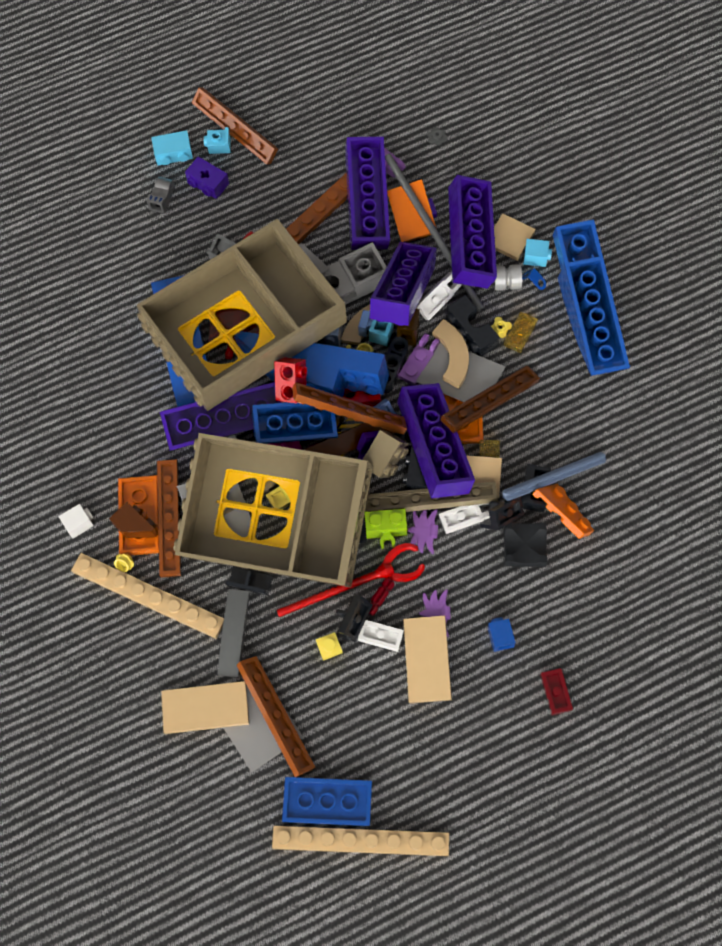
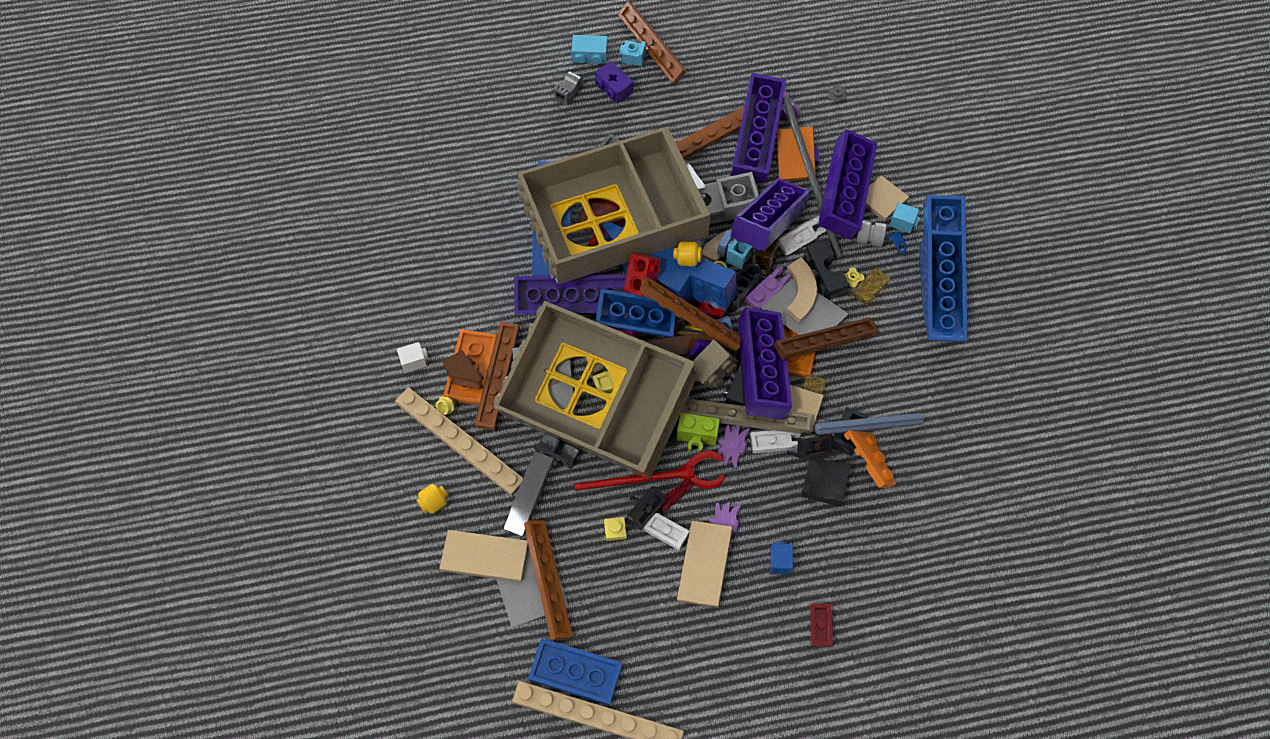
camera: 10 degrees right, 5 degrees down
(136, 663) = (432, 498): none -> yellow head
(331, 347) = (688, 253): none -> yellow head

